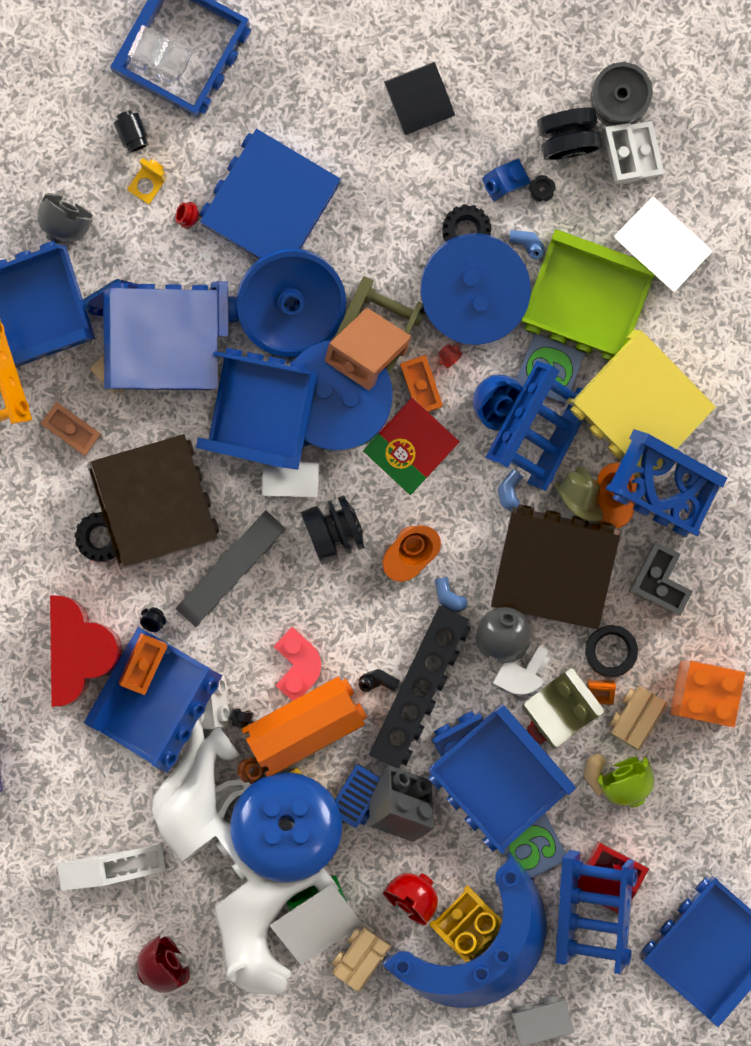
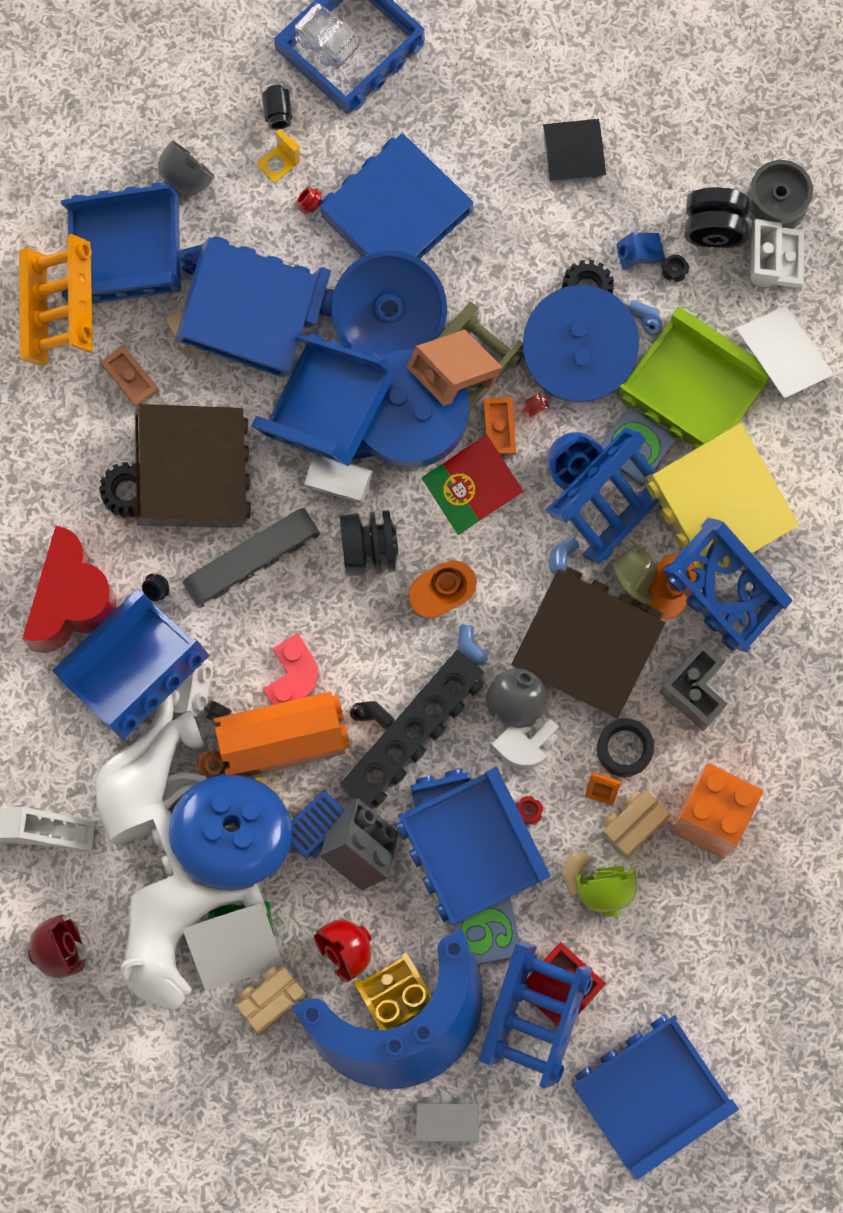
camera: 15 degrees right, 10 degrees down
(142, 664) = (131, 625): orange plate -> none
(562, 708) = (558, 791): olive bracket -> none

